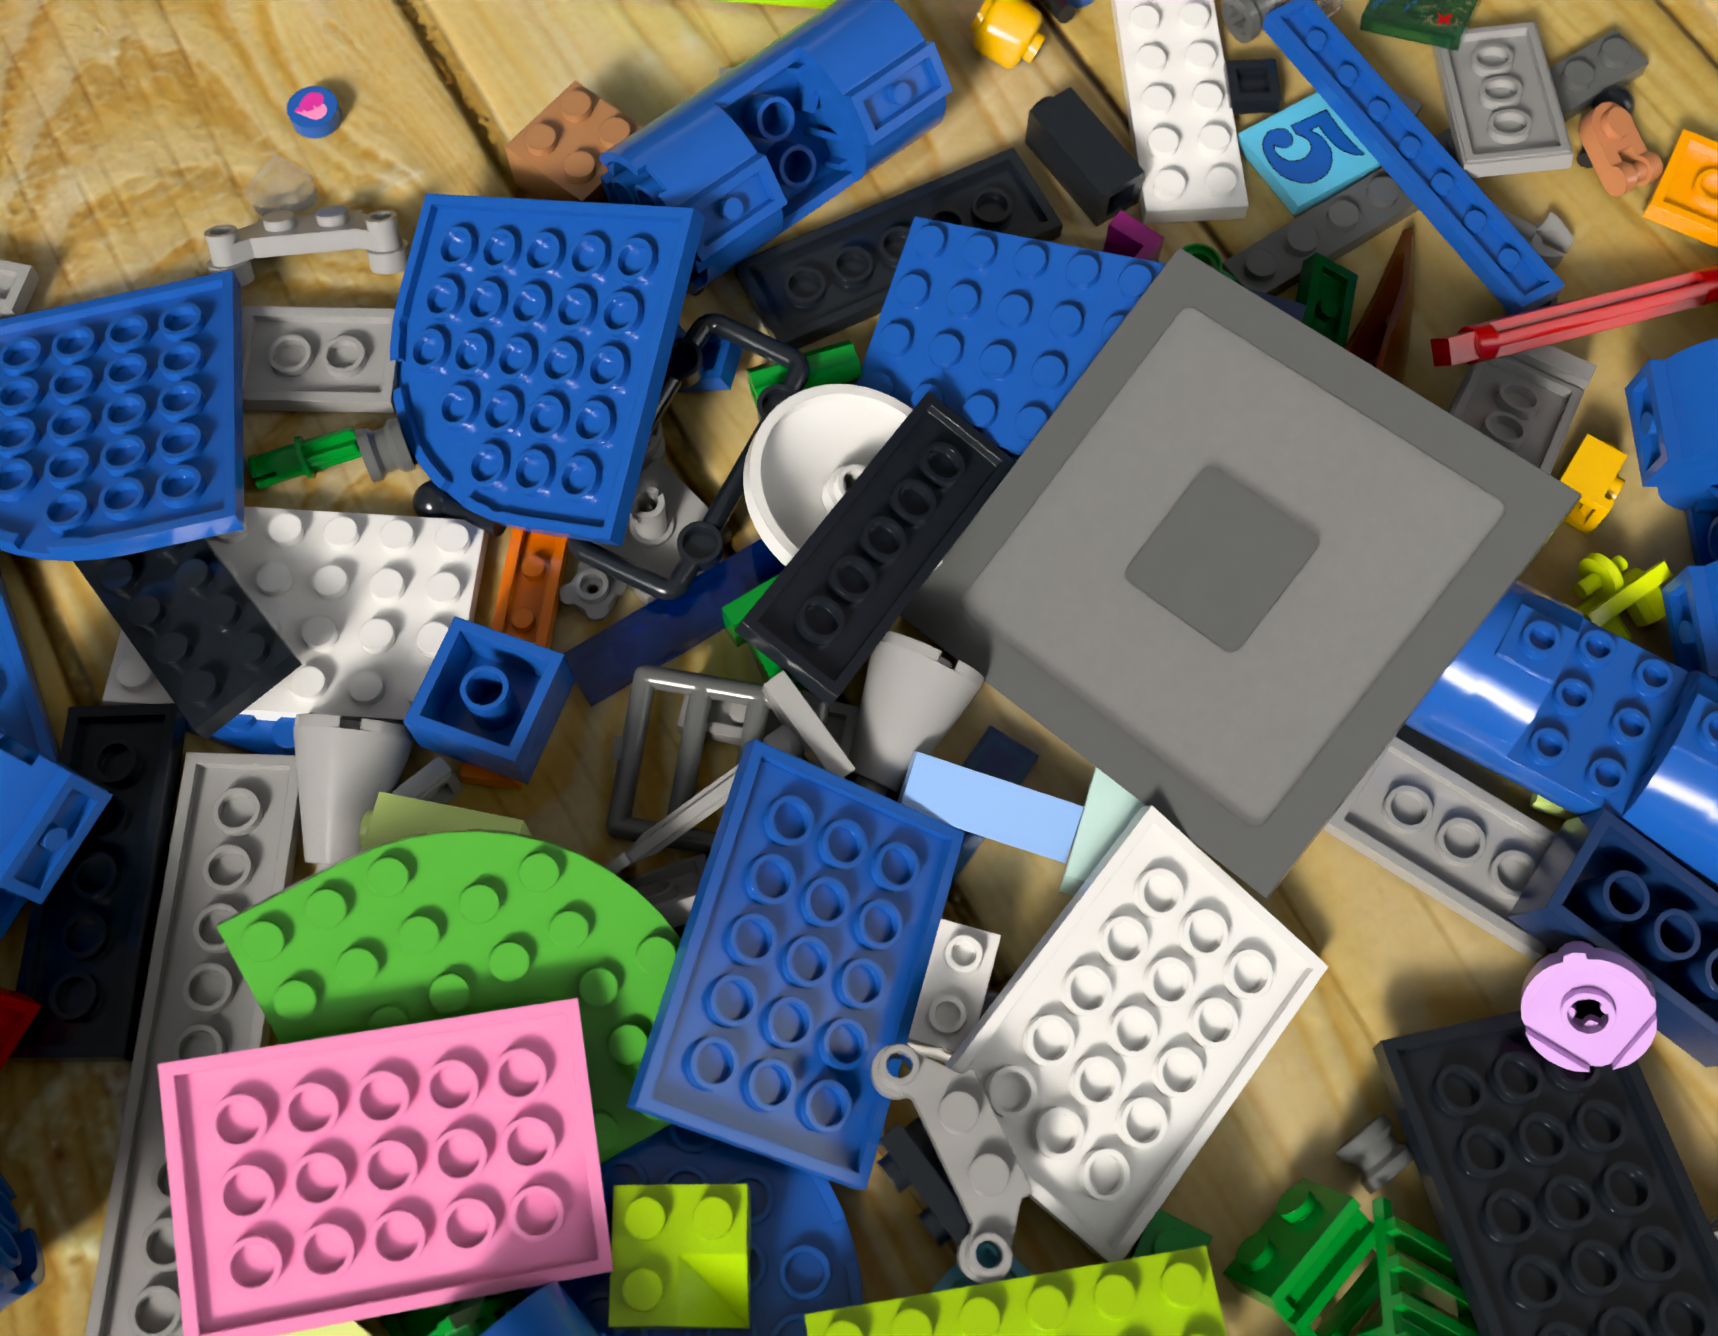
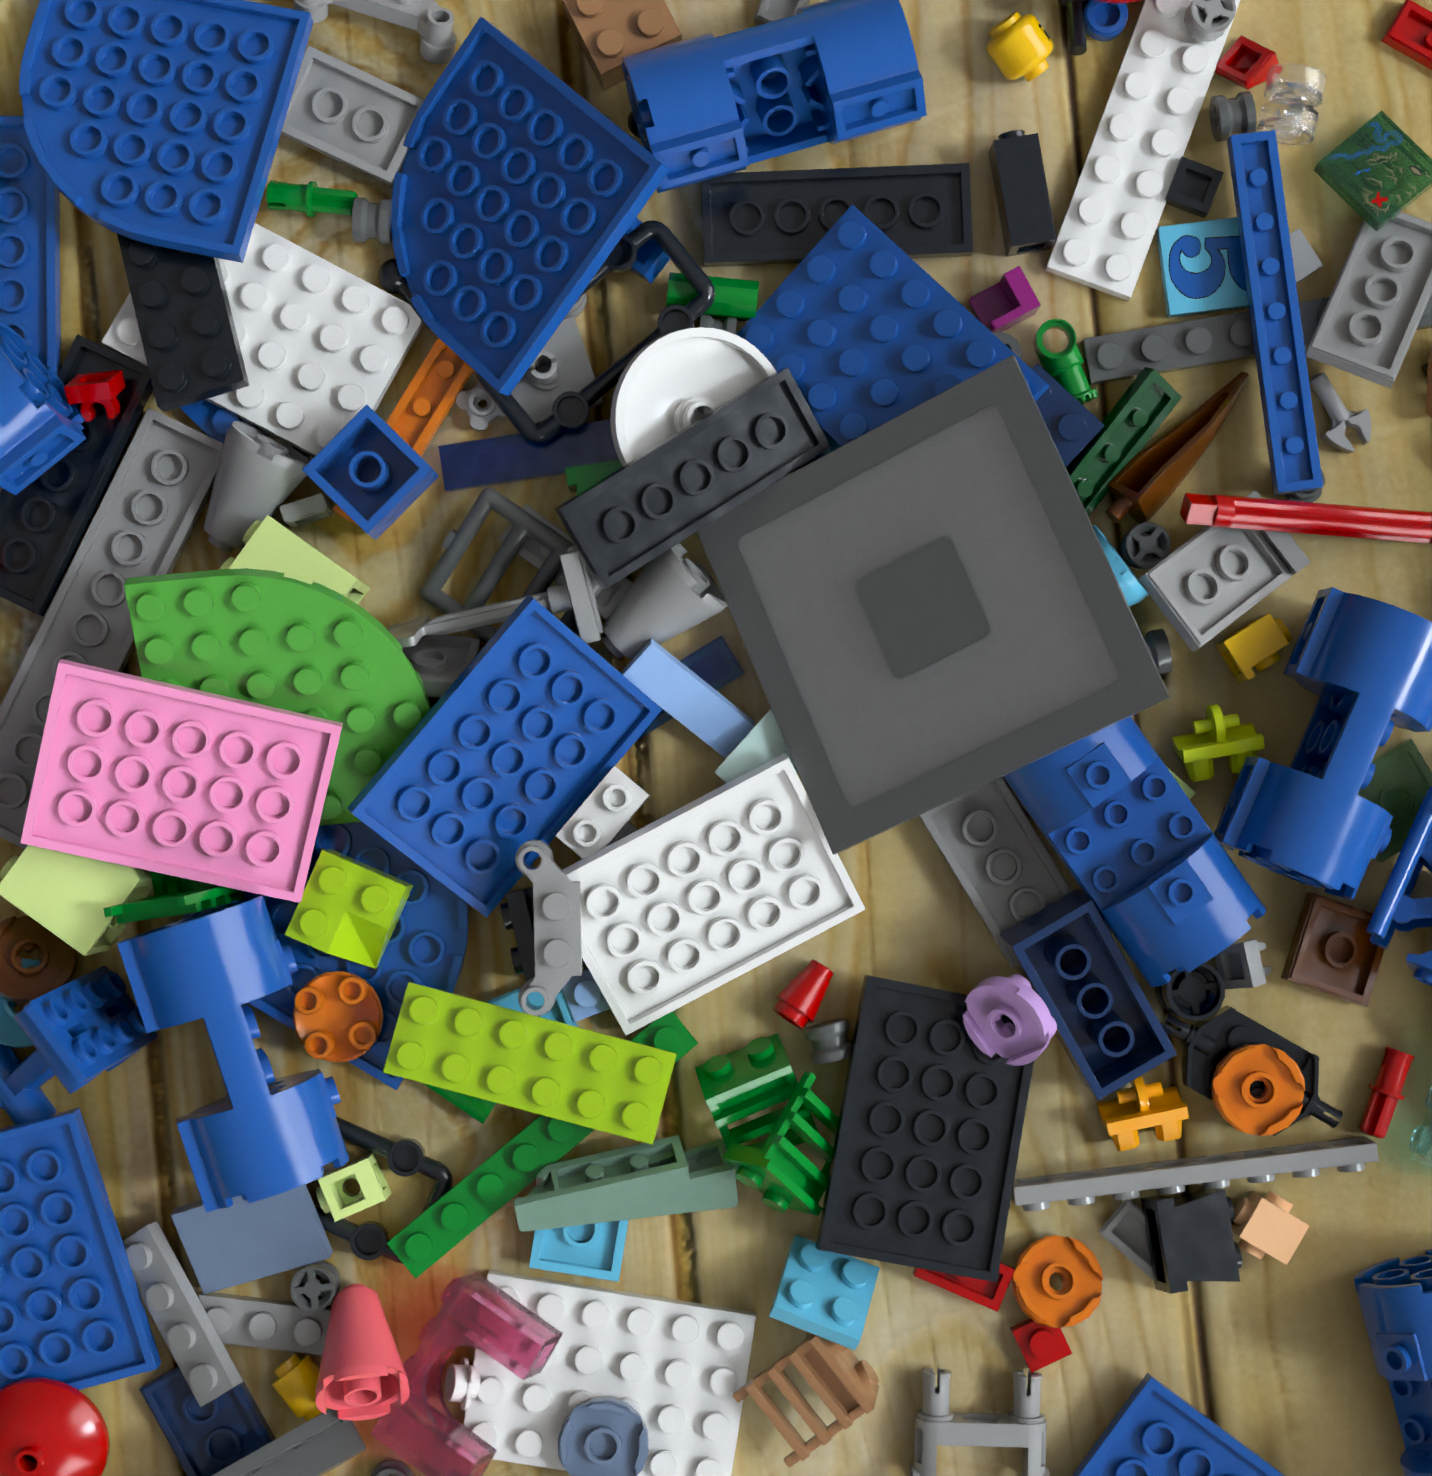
camera: 25 degrees right, 20 degrees up
(108, 750) = (96, 388): none -> red tile
(1040, 1240) = (584, 996): none -> light blue plate
(1311, 1111) = (803, 995): none -> red cone

